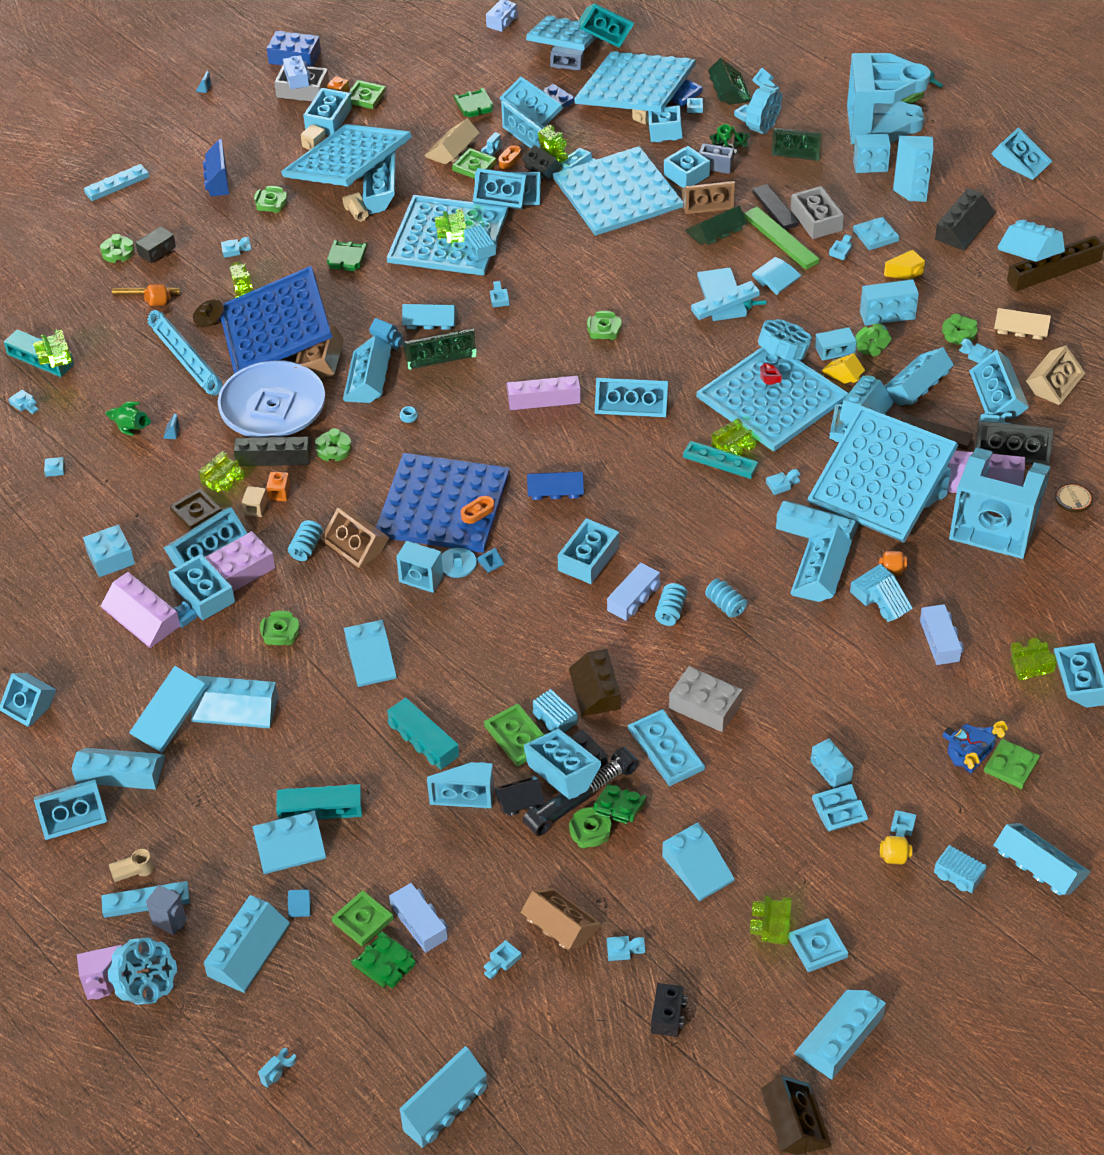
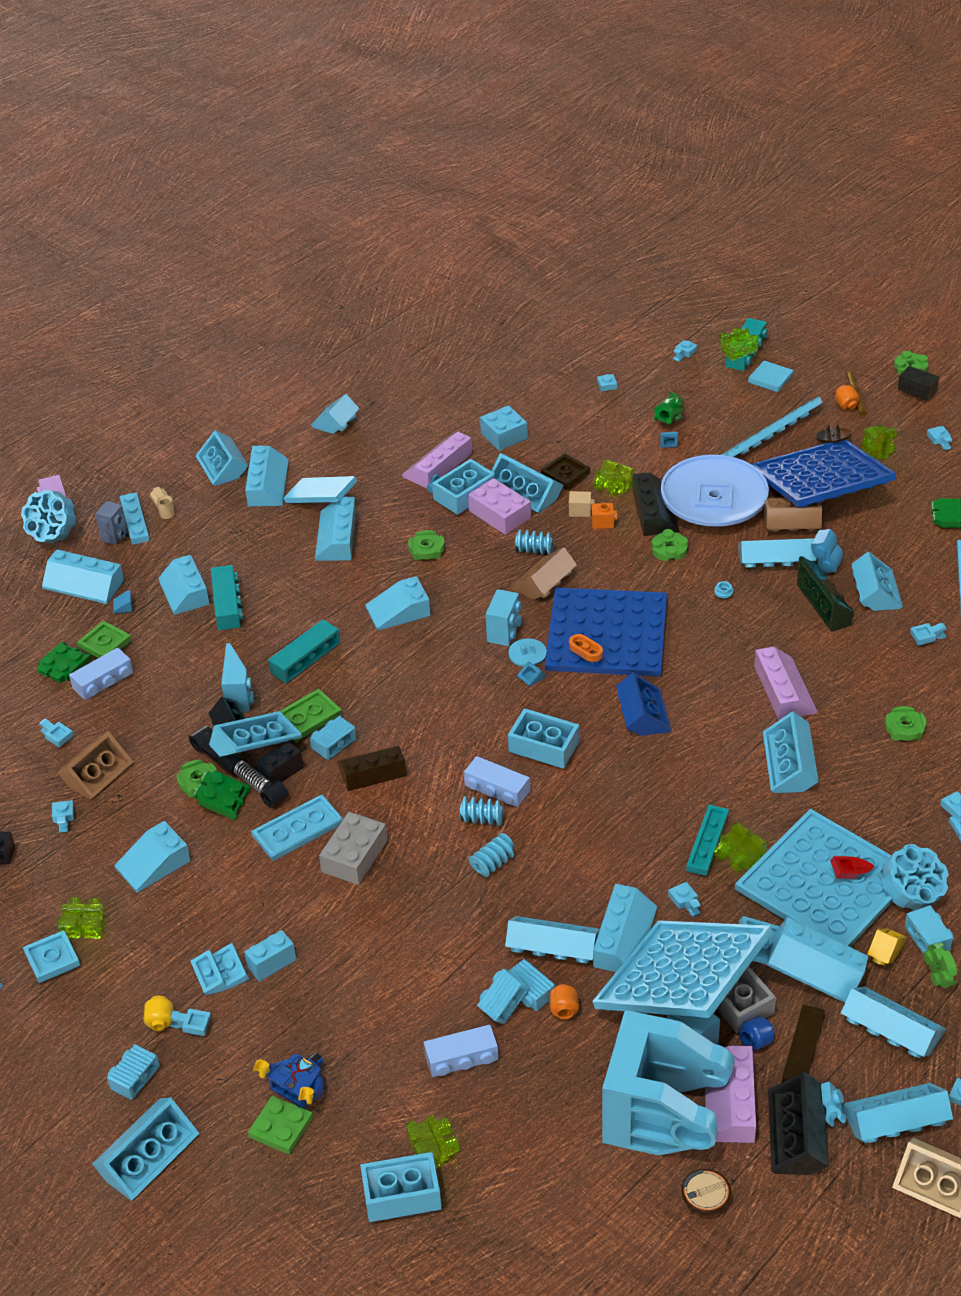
camera: 85 degrees right, 5 degrees down
(95, 344) = (770, 376): none -> medium azure tile

